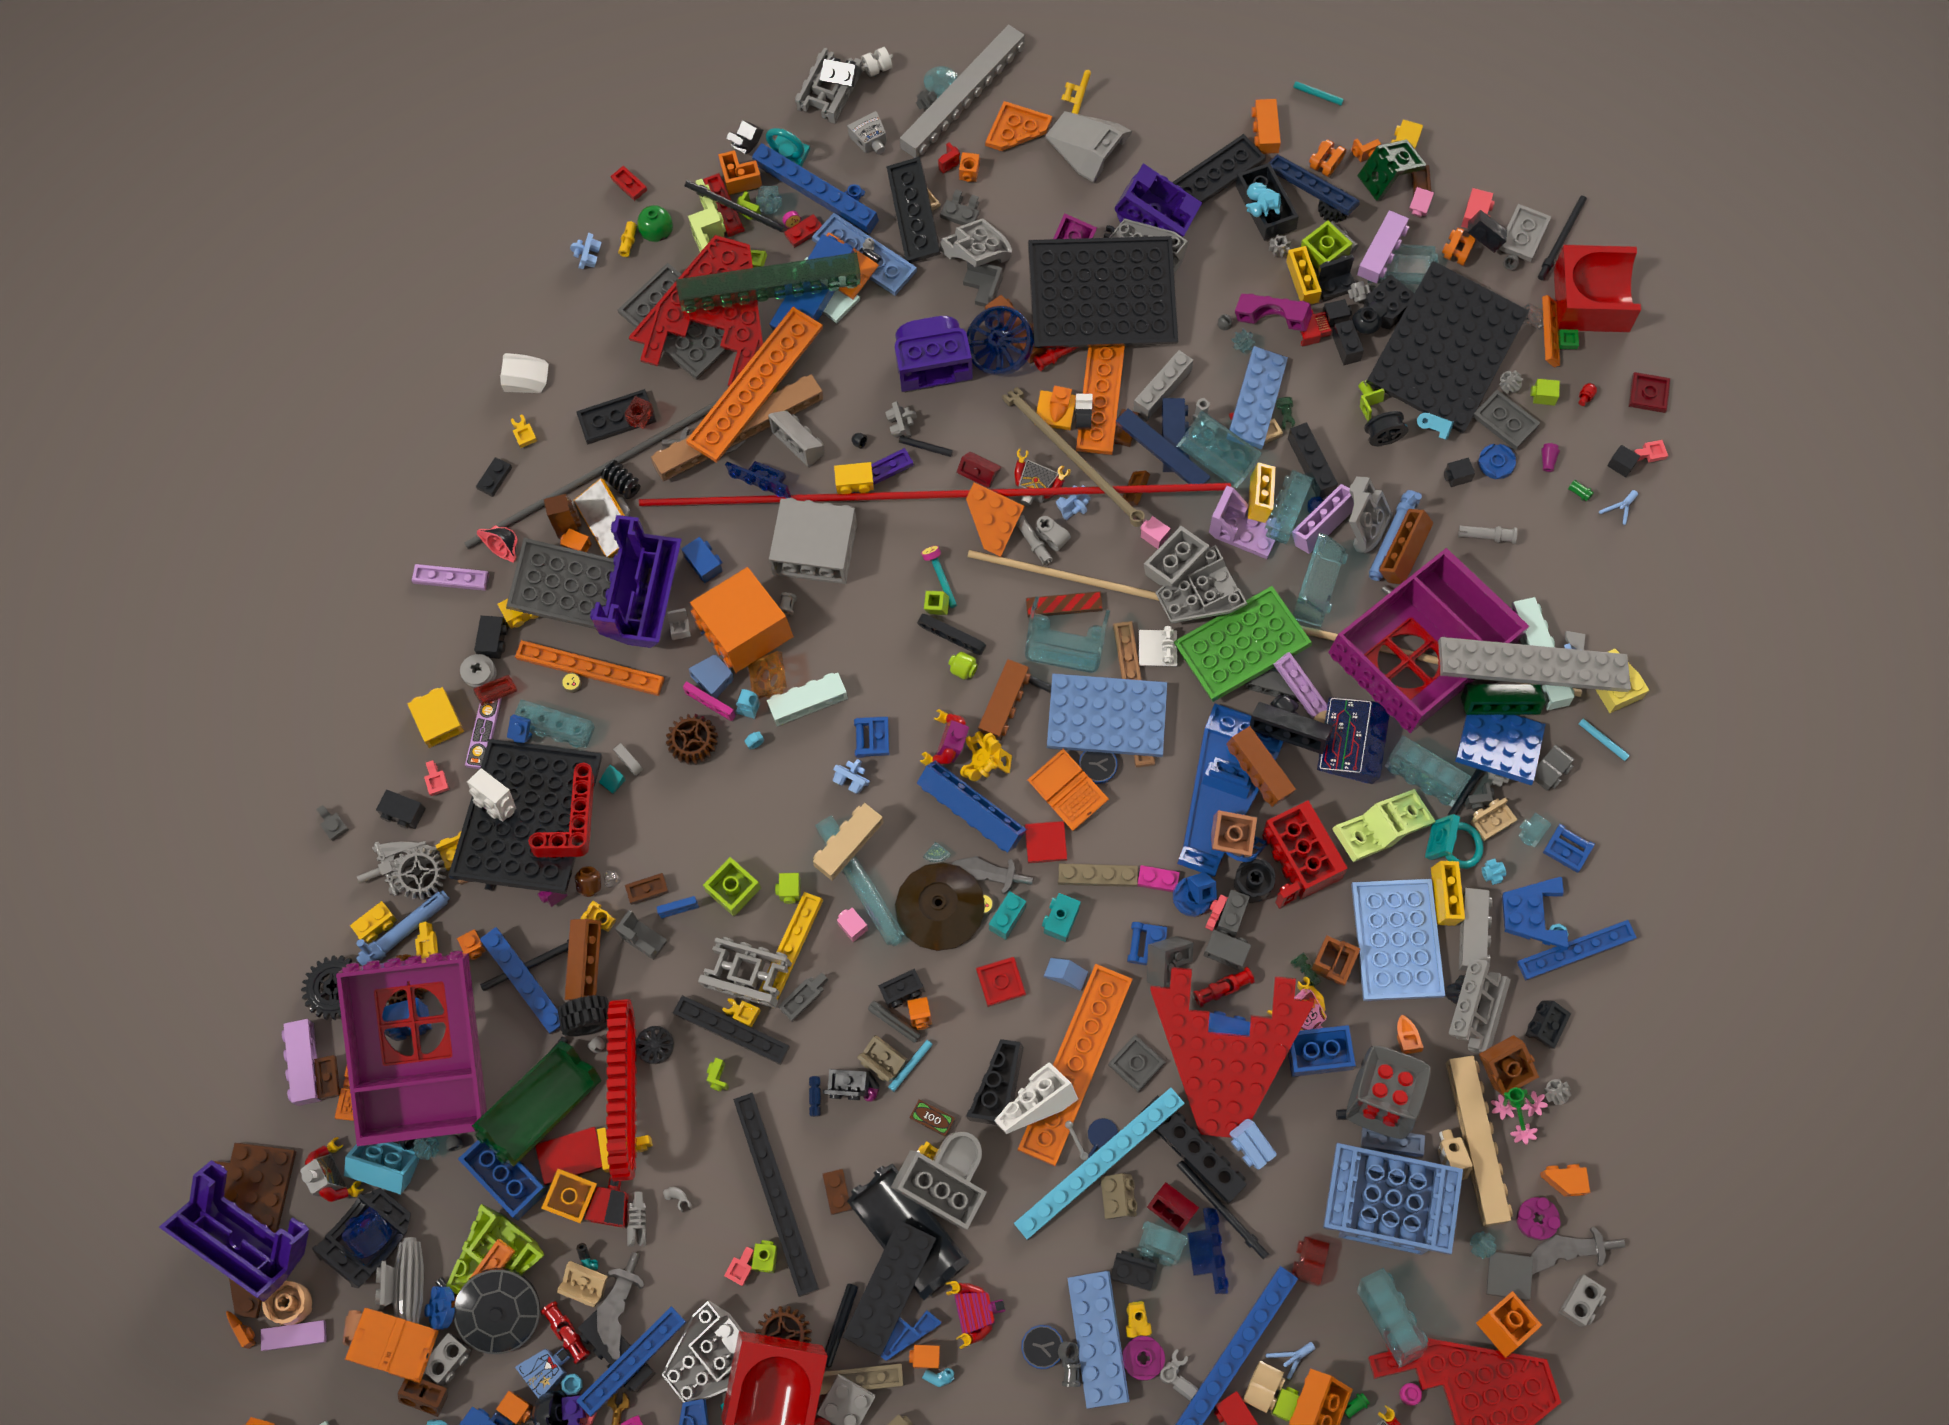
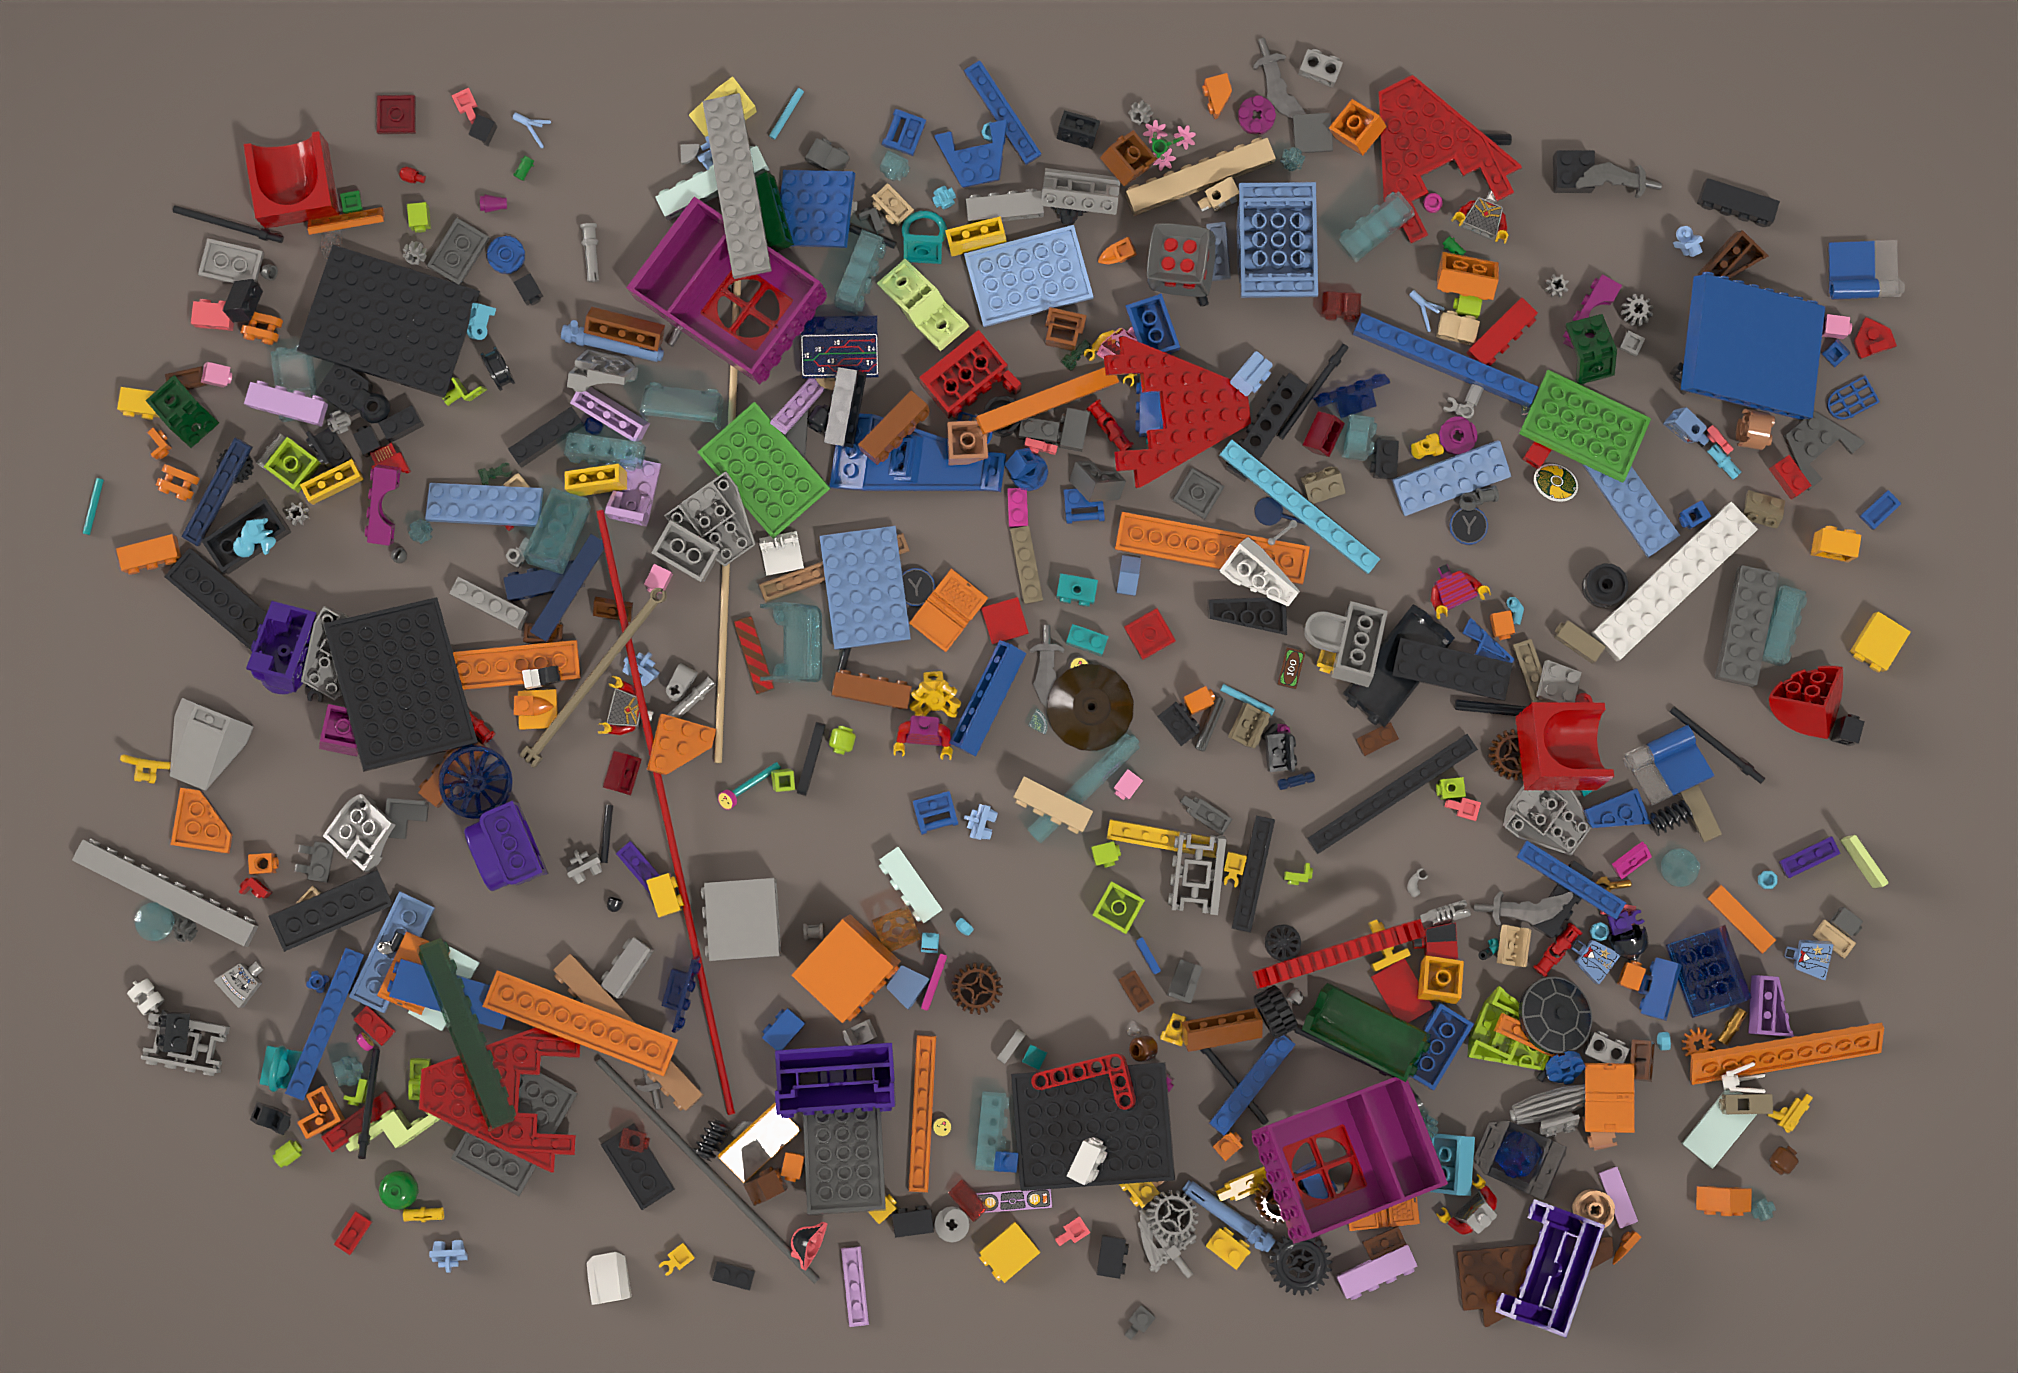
camera: 110 degrees left, 15 degrees up
(711, 144) = (288, 1153): none -> lime brick
(1261, 918) = (1045, 400): none -> orange tile

